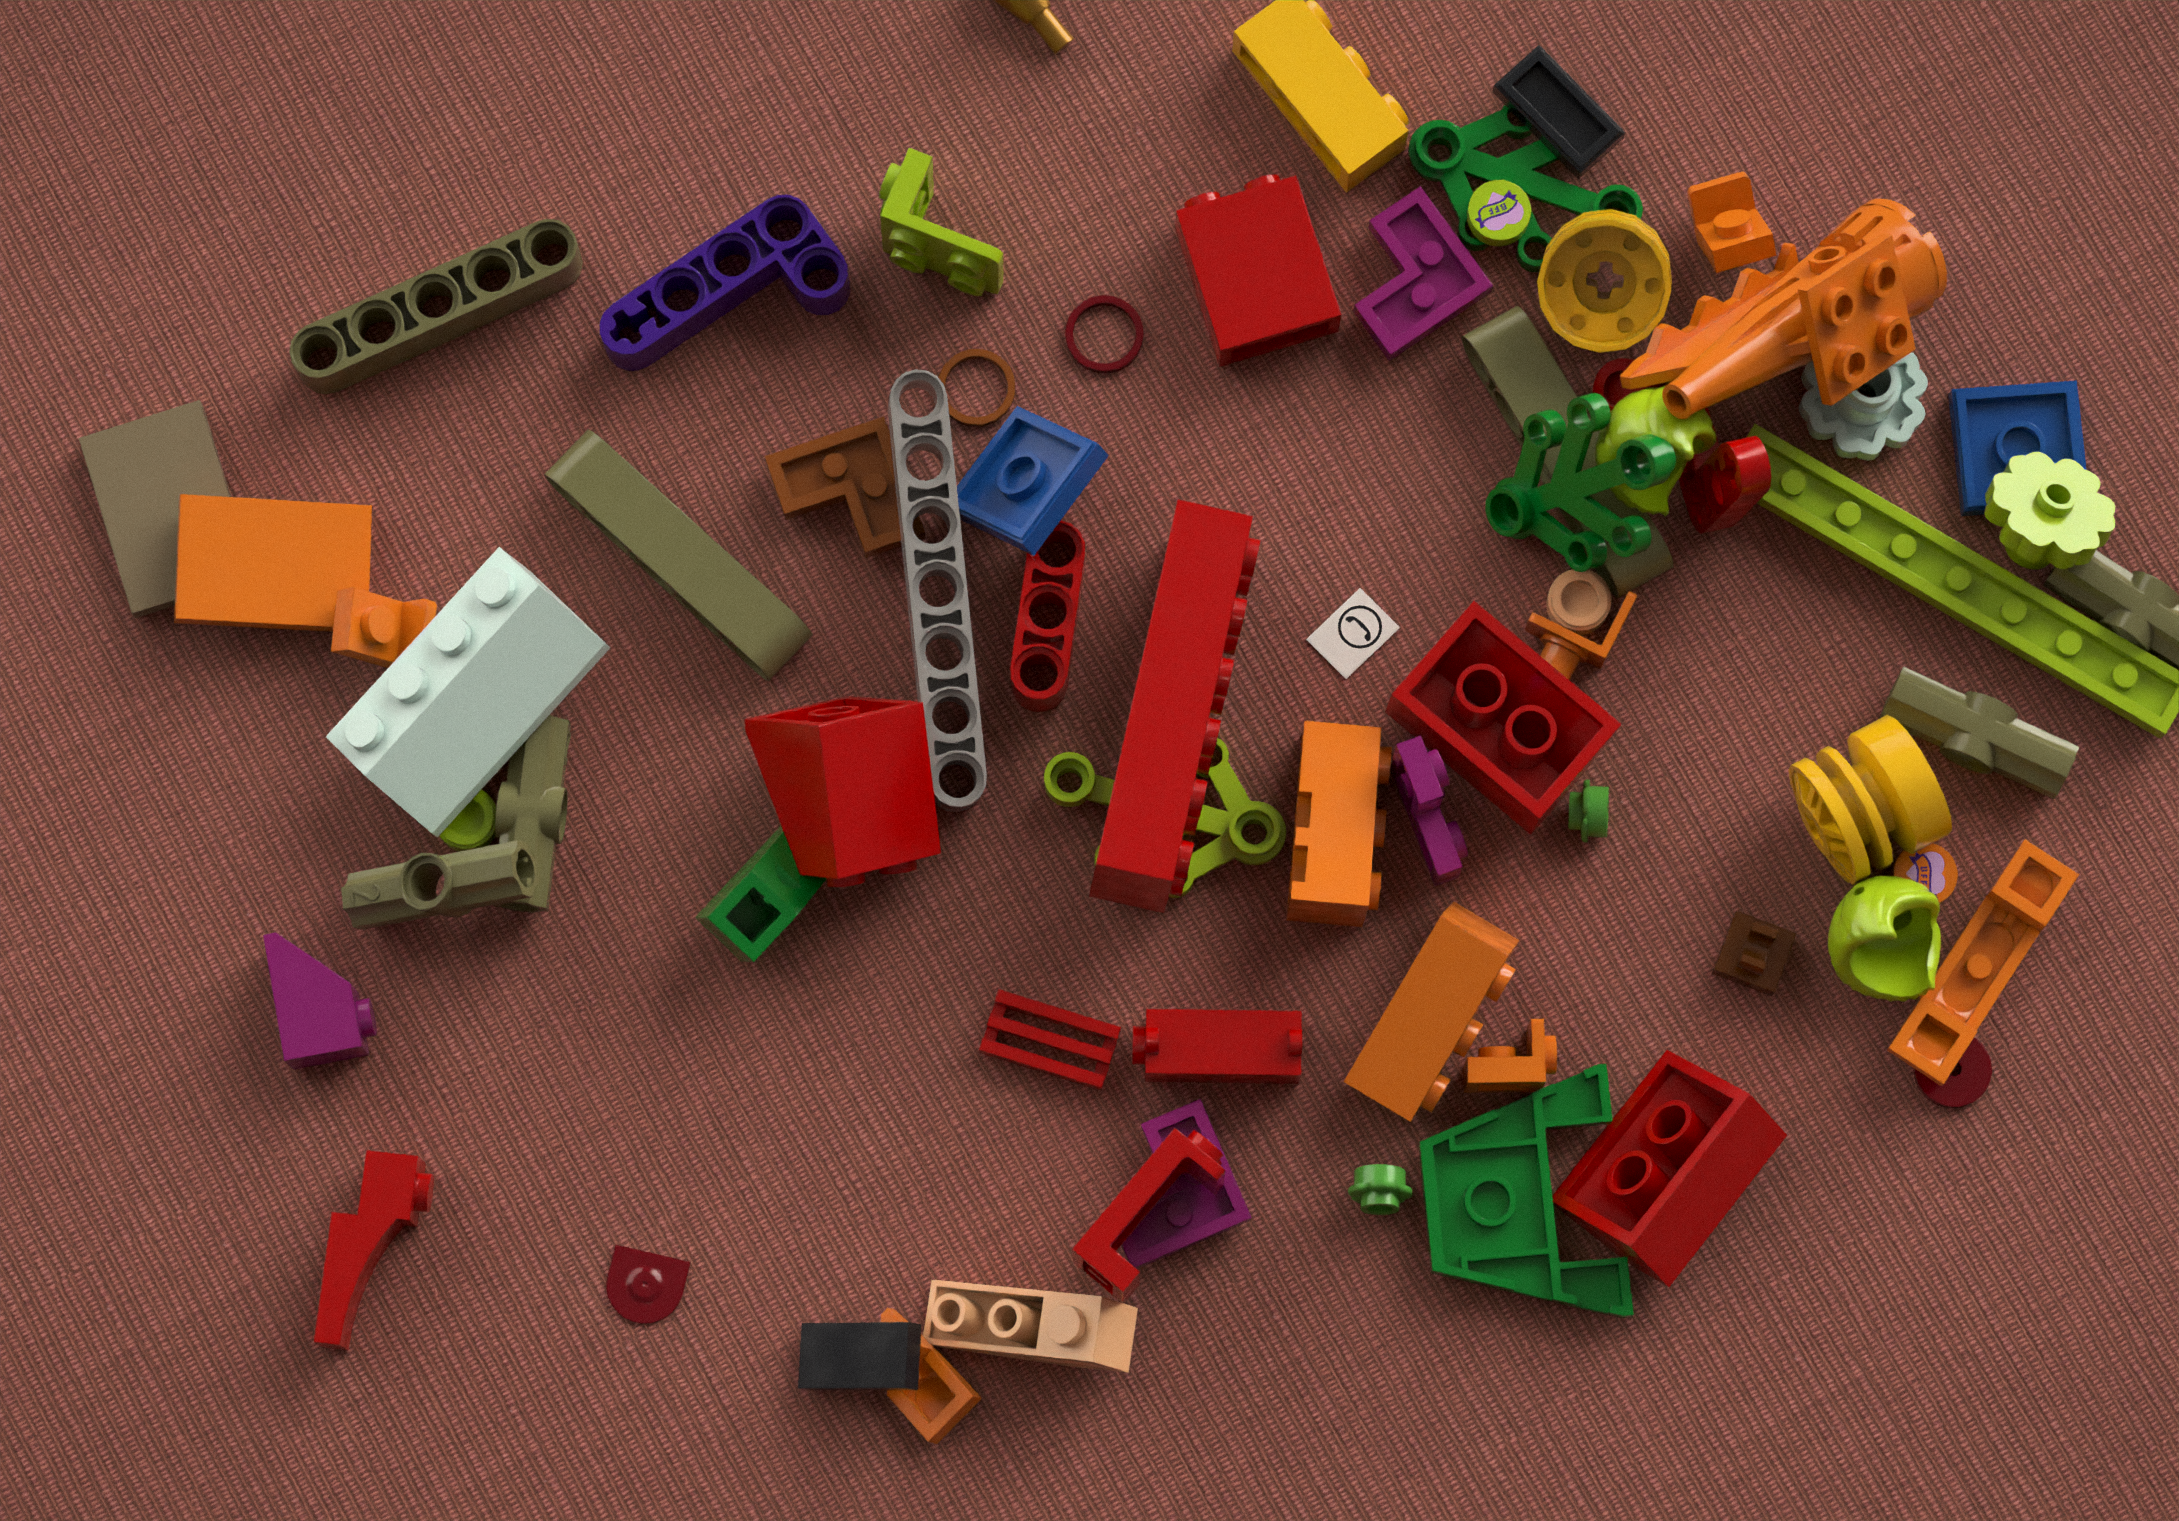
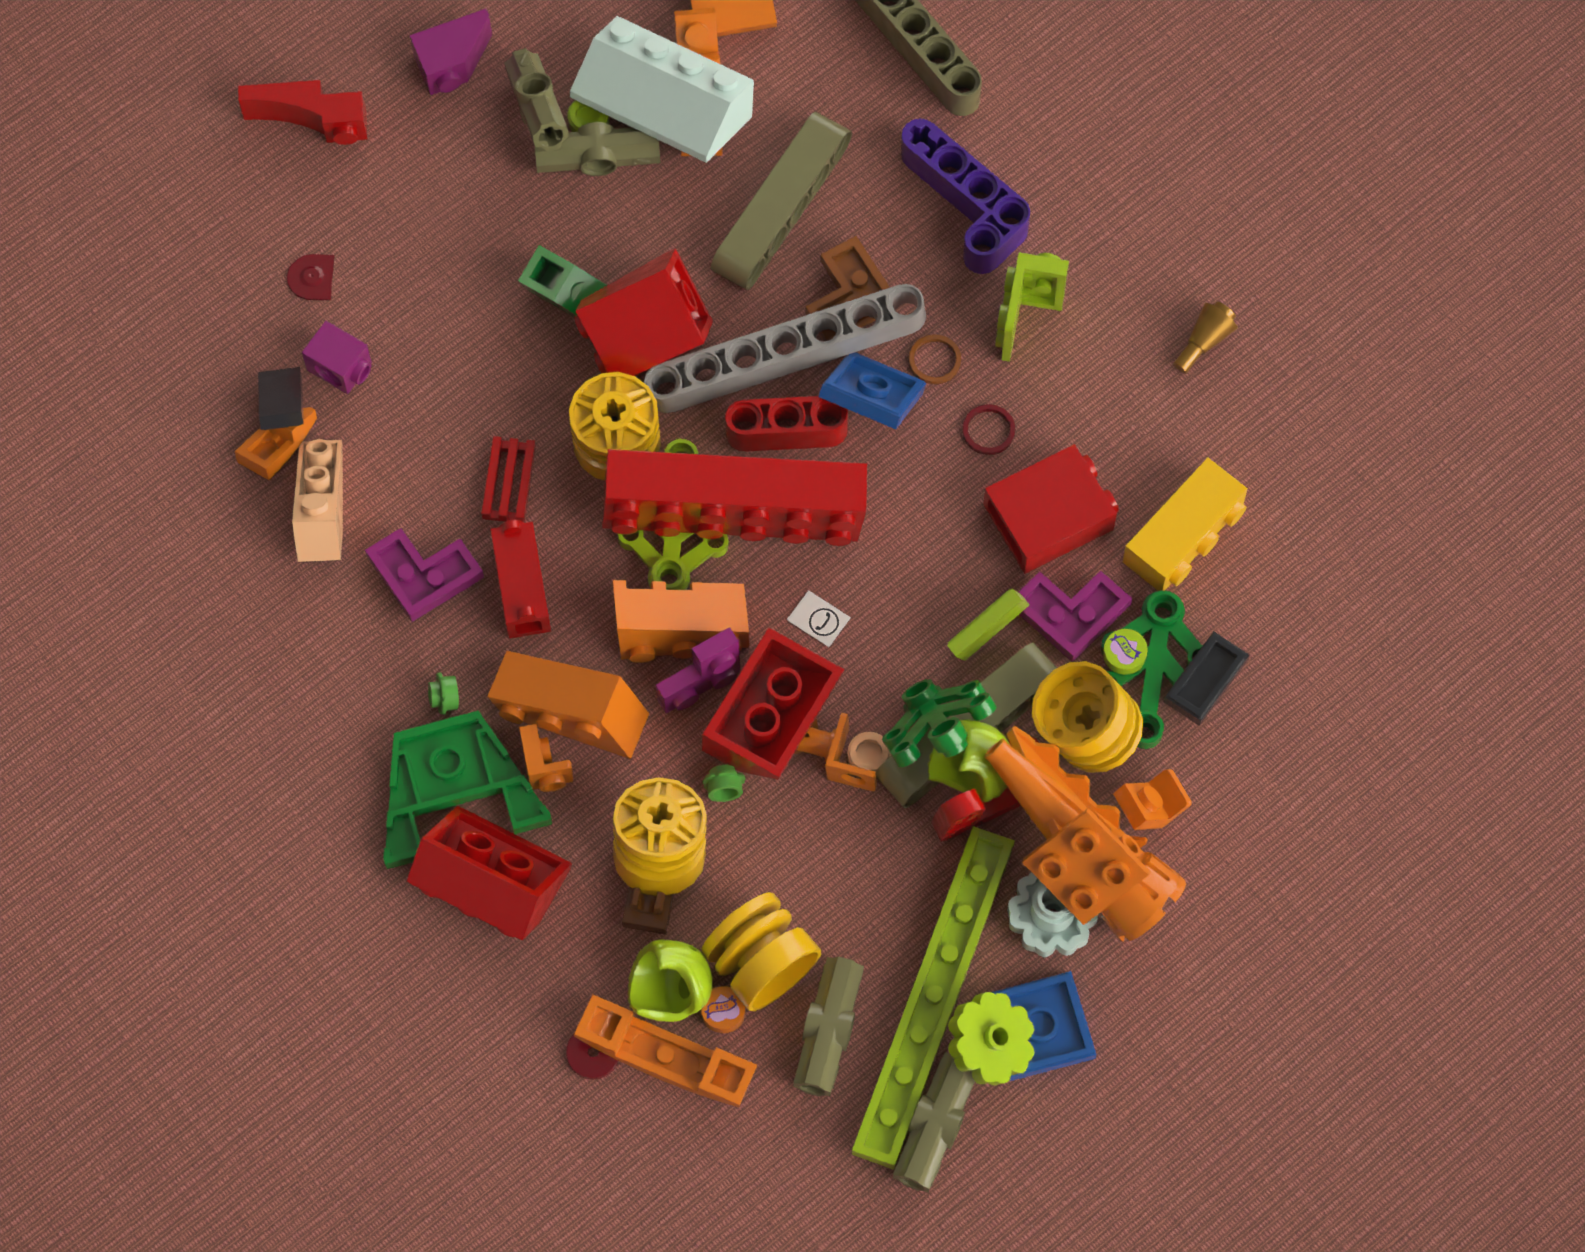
camera: 80 degrees right, 10 degrees down
(805, 1260) = (337, 357): none -> magenta brick
(1023, 899) = (592, 424): none -> yellow wheel
(1098, 1248) = (370, 514): red panel -> none
(1428, 391) = (987, 624): none -> lime tile
(1683, 943) = (659, 836): none -> yellow wheel

